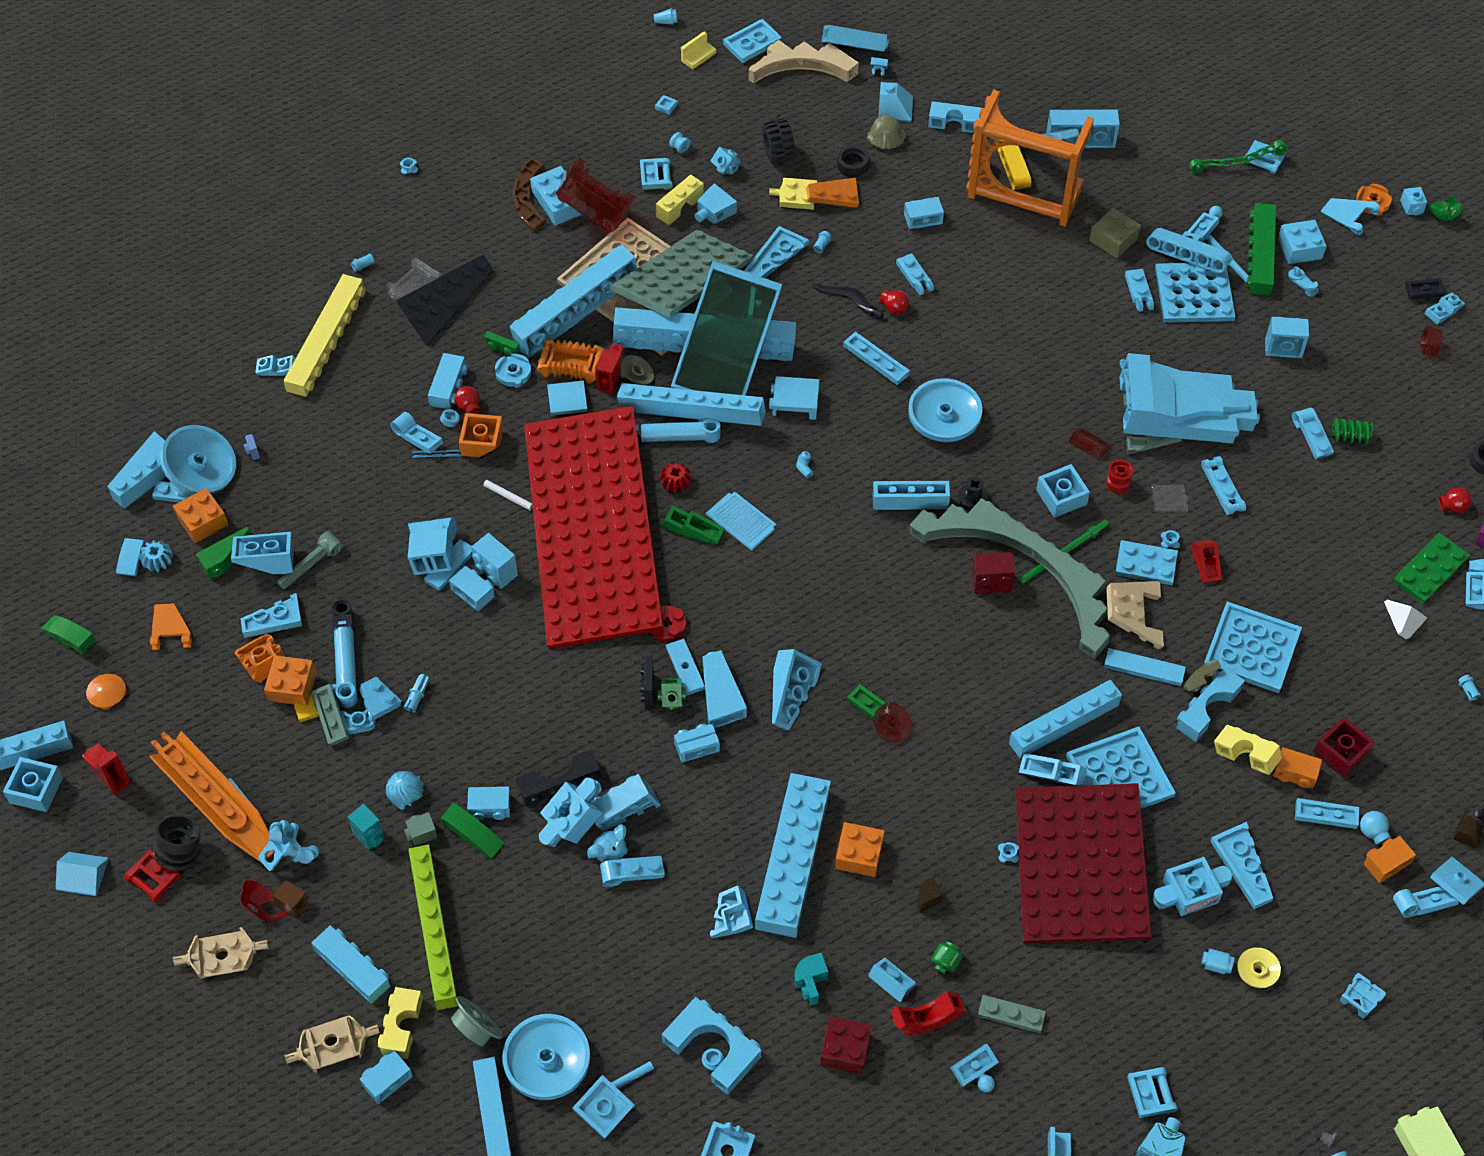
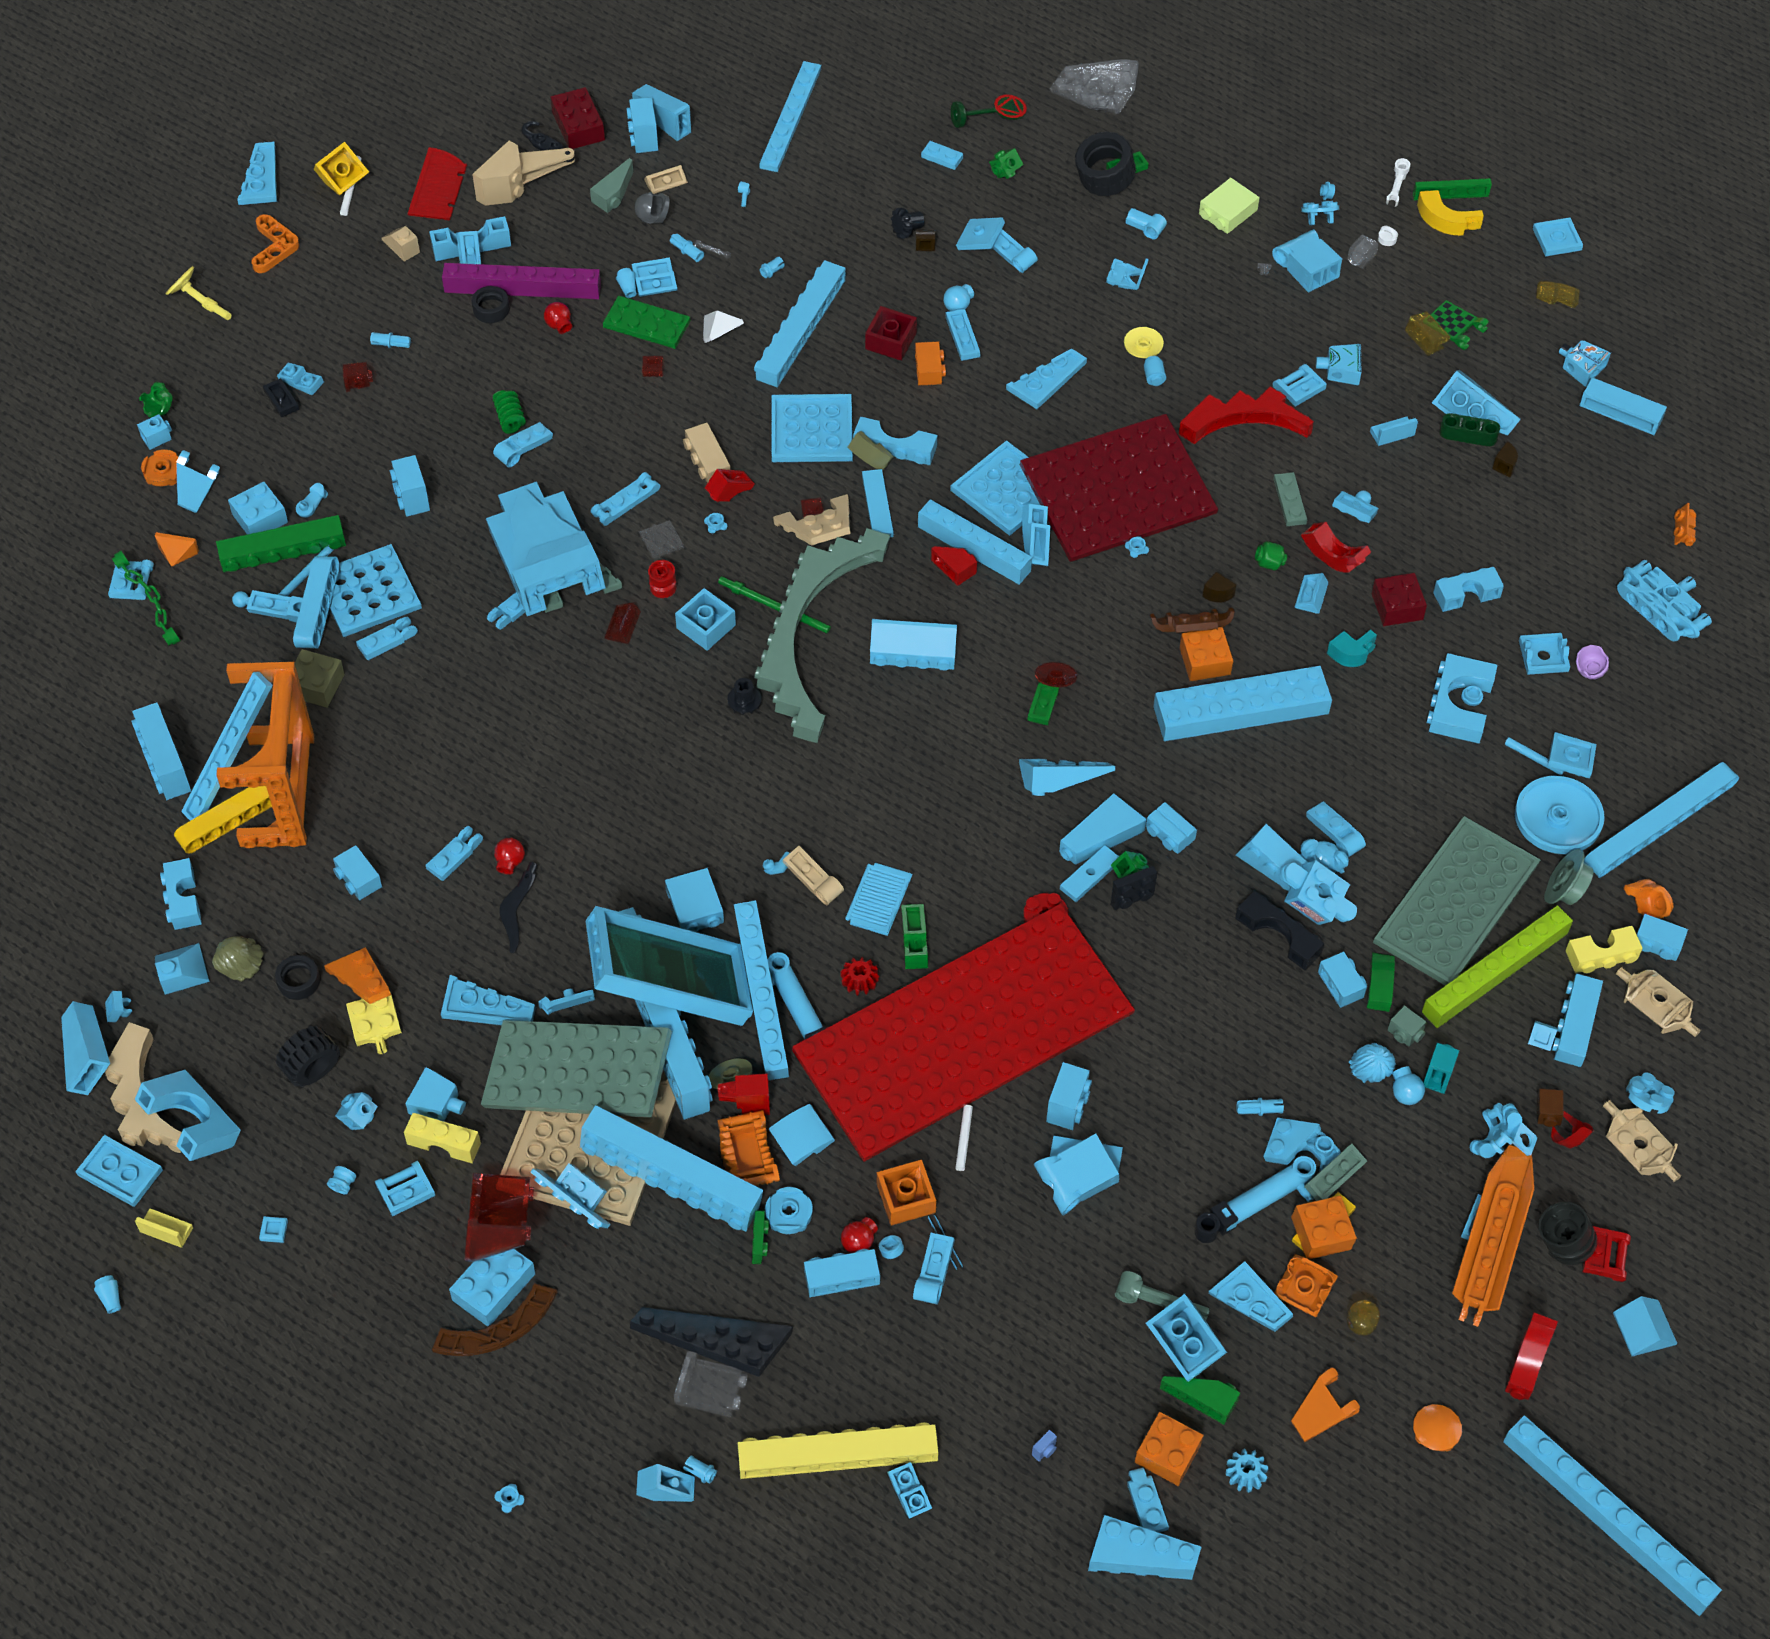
camera: 115 degrees left, 0 degrees up
(33, 784) = (1592, 1425): medium azure brick -> none
(69, 634) = (1397, 1509): green slope -> none
(129, 557) = (1262, 1499): medium azure slope -> none
(198, 459) = (1102, 1486): medium azure dish -> none
(210, 677) = (1363, 1317): none -> clear yellow head
(243, 975) = (1650, 1093): none -> medium azure plate
(354, 929) = (1542, 1035): none -> medium azure plate
(362, 239) = (665, 1484): none -> medium azure slope
(371, 799) = (1407, 1086): none -> medium azure piece
(427, 1092) = (1650, 898): none -> orange hair
(472, 588) = (1107, 1111): medium azure brick -> none
(513, 932) = (1456, 901): none -> sand green plate
(590, 249) = (577, 1190): none -> medium azure bracket
(732, 913) = (1328, 734): medium azure slope -> none
(751, 89) = (181, 1091): none -> medium azure arch
(778, 480) = (822, 885): none -> tan plate
(823, 238) = (444, 963): medium azure pin -> none
(830, 1136) = (1483, 583): none -> medium azure arch
(876, 358) = (599, 846): medium azure plate -> none
(897, 850) = (1193, 622): none -> reddish brown plate
(910, 495) = (778, 745): medium azure brick -> none
(945, 410) = (648, 752): medium azure dish -> none
(967, 626) = (913, 644): none -> medium azure slope
(993, 573) = (842, 641): dark red brick -> none
(1047, 695) = (955, 563): none -> red slope
(1141, 990) = (1242, 409): none -> red arch
(1146, 562) = (753, 535): medium azure plate -> none
(1157, 615) = (811, 507): none -> clear red plate
(1190, 878) = (1106, 400): medium azure brick -> none
(1250, 556) = (705, 451): none -> tan brick
(1263, 754) = (936, 379): light yellow arch -> none
(1284, 187) = (176, 547): none -> orange slope
(1372, 552) = (652, 366): none -> clear red plate
(1386, 683) = (800, 323): none -> medium azure brick
(1389, 858) = (986, 281): orange brick -> none
(1425, 1049) = (1150, 225): none -> medium azure piece
(1469, 377) = (390, 340): none -> medium azure axle

